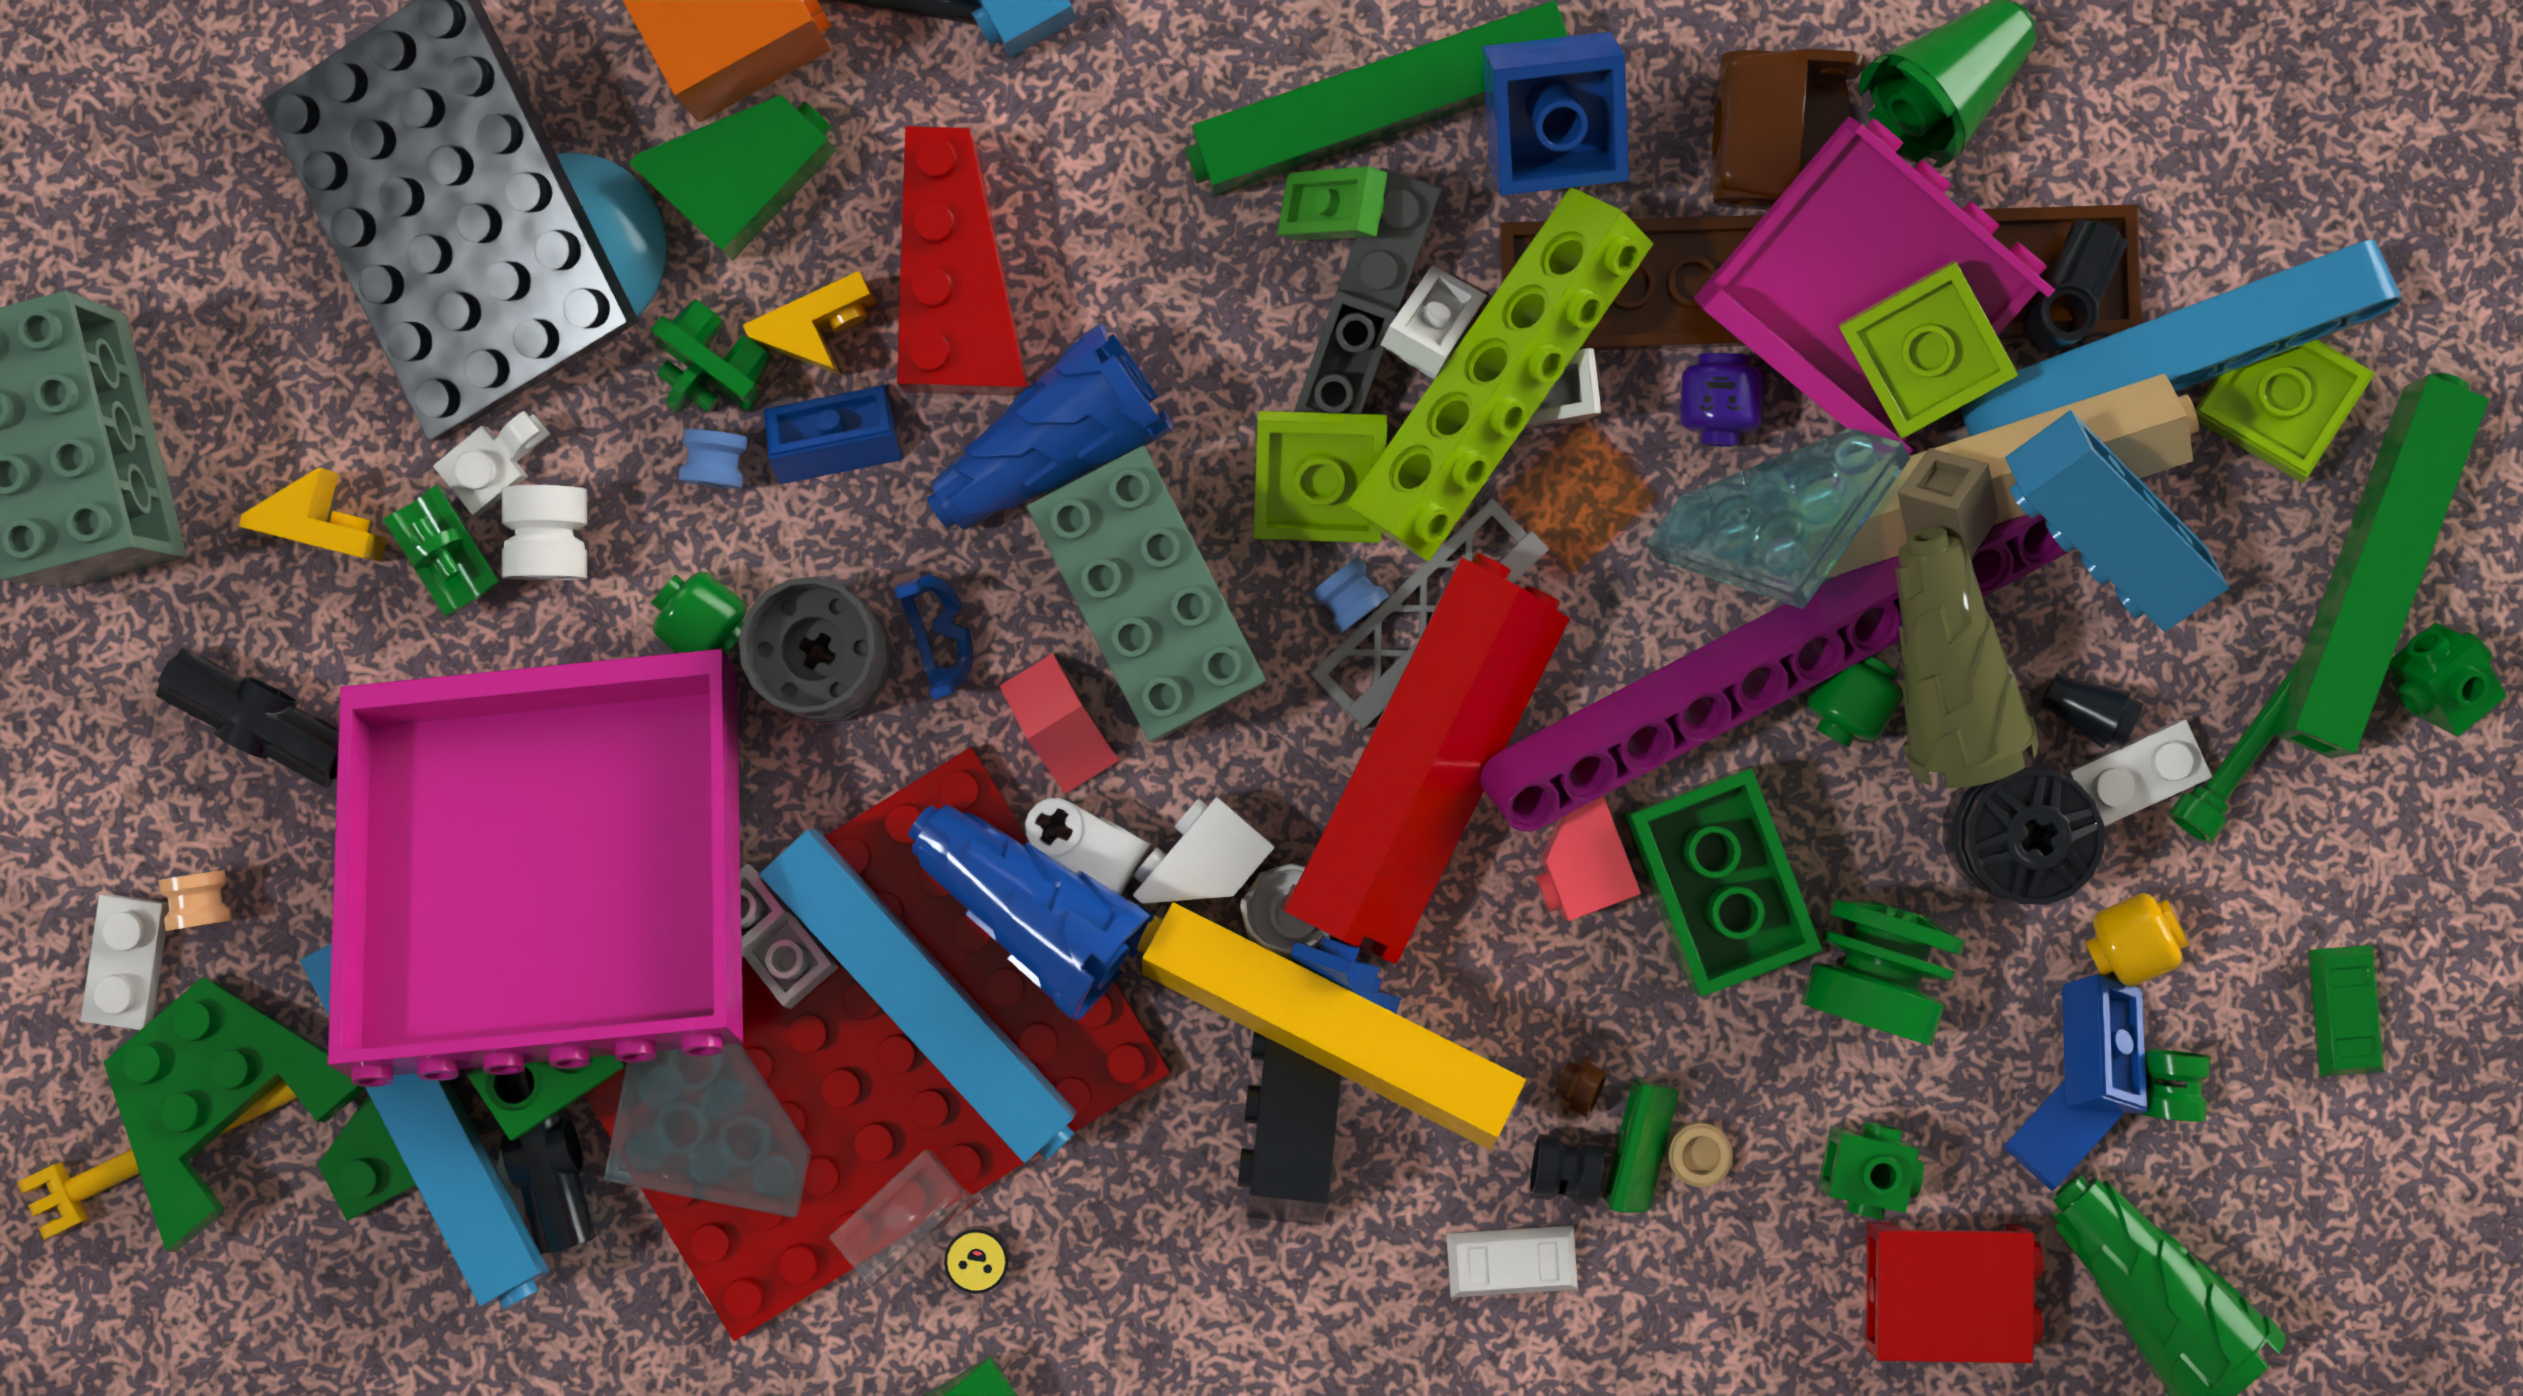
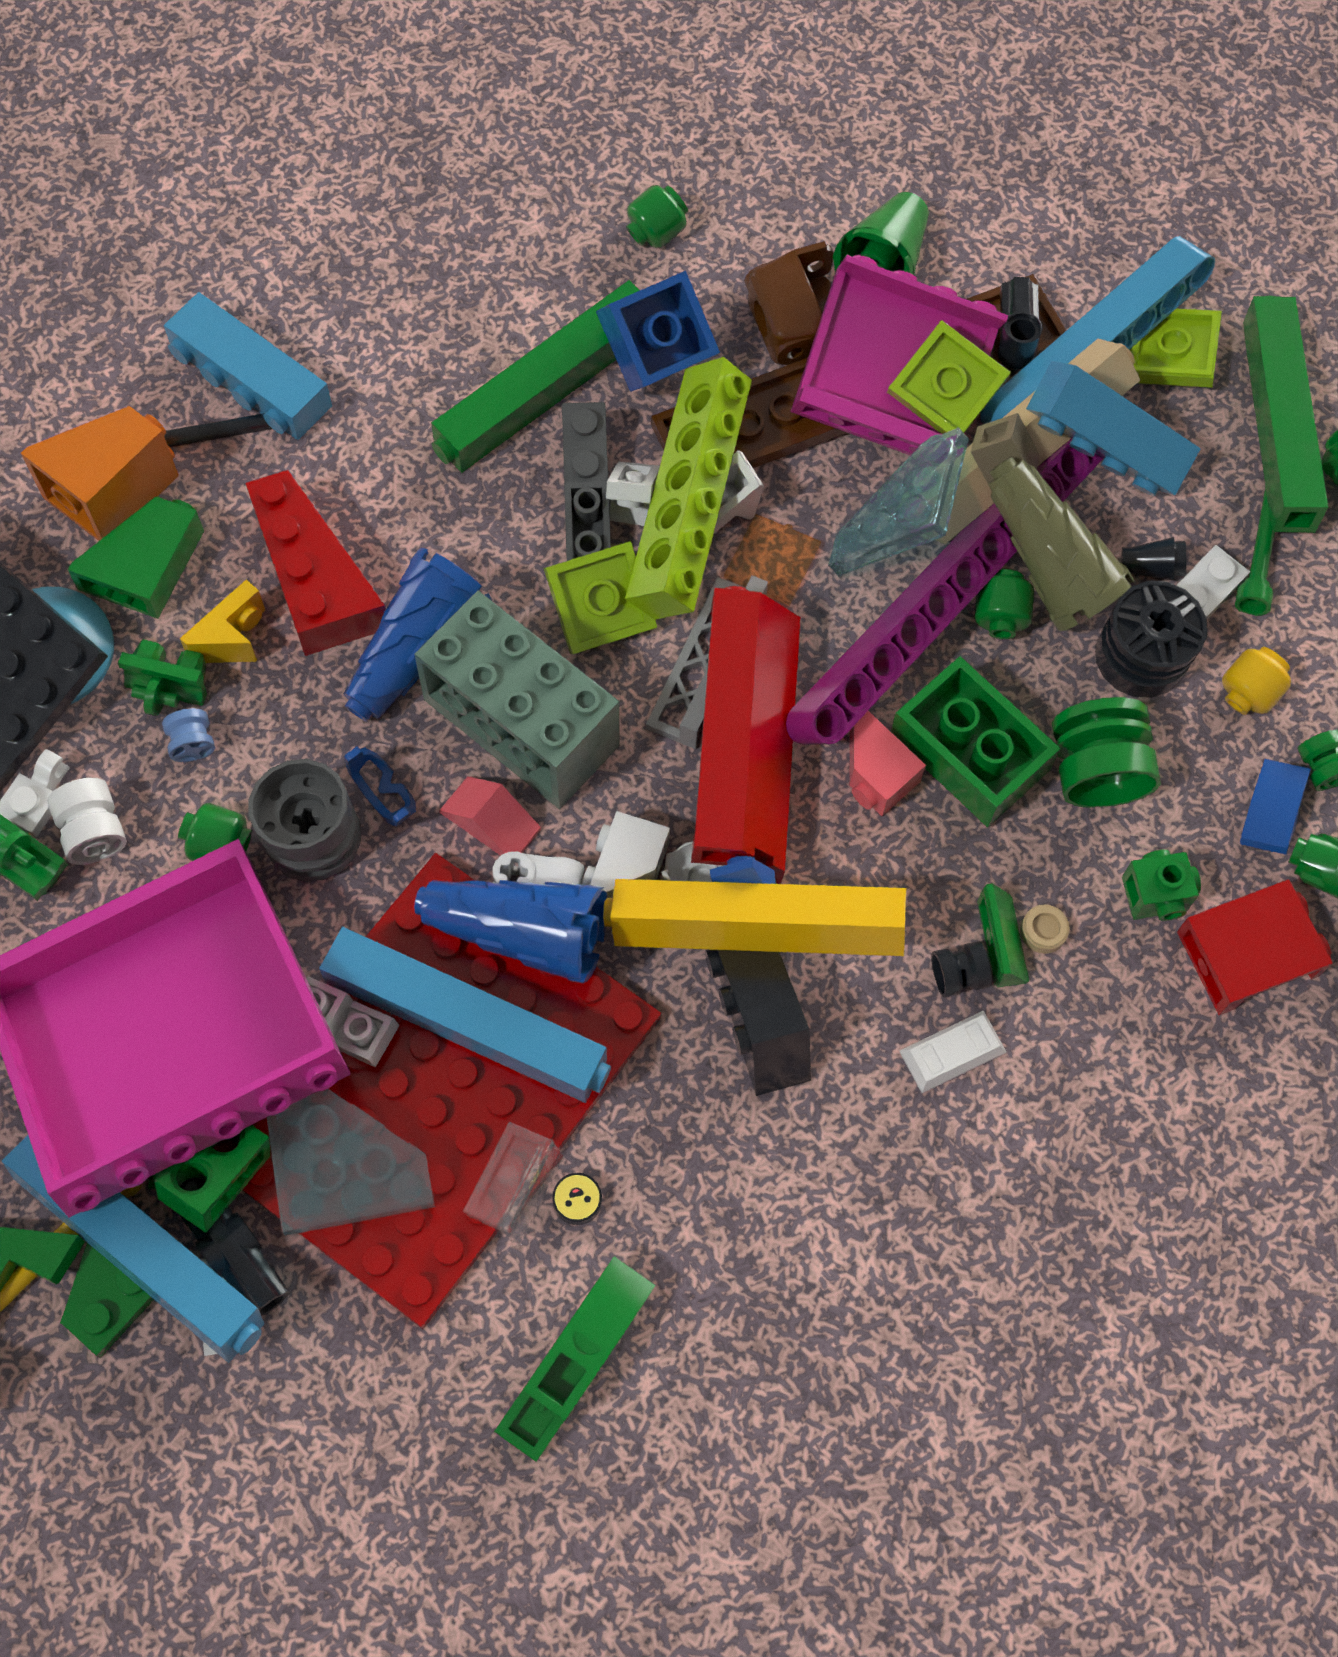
camera: 25 degrees left, 20 degrees down
(832, 434) = (265, 697): blue slope -> none
(1332, 204) = (540, 437): bright green plate -> none
(1349, 595) = (650, 664): medium blue wheel -> none
(1580, 1087) = (944, 913): reddish brown plate -> none
(1722, 398) = (835, 464): dark purple head -> none
(2104, 1045) = (1269, 752): blue slope -> none

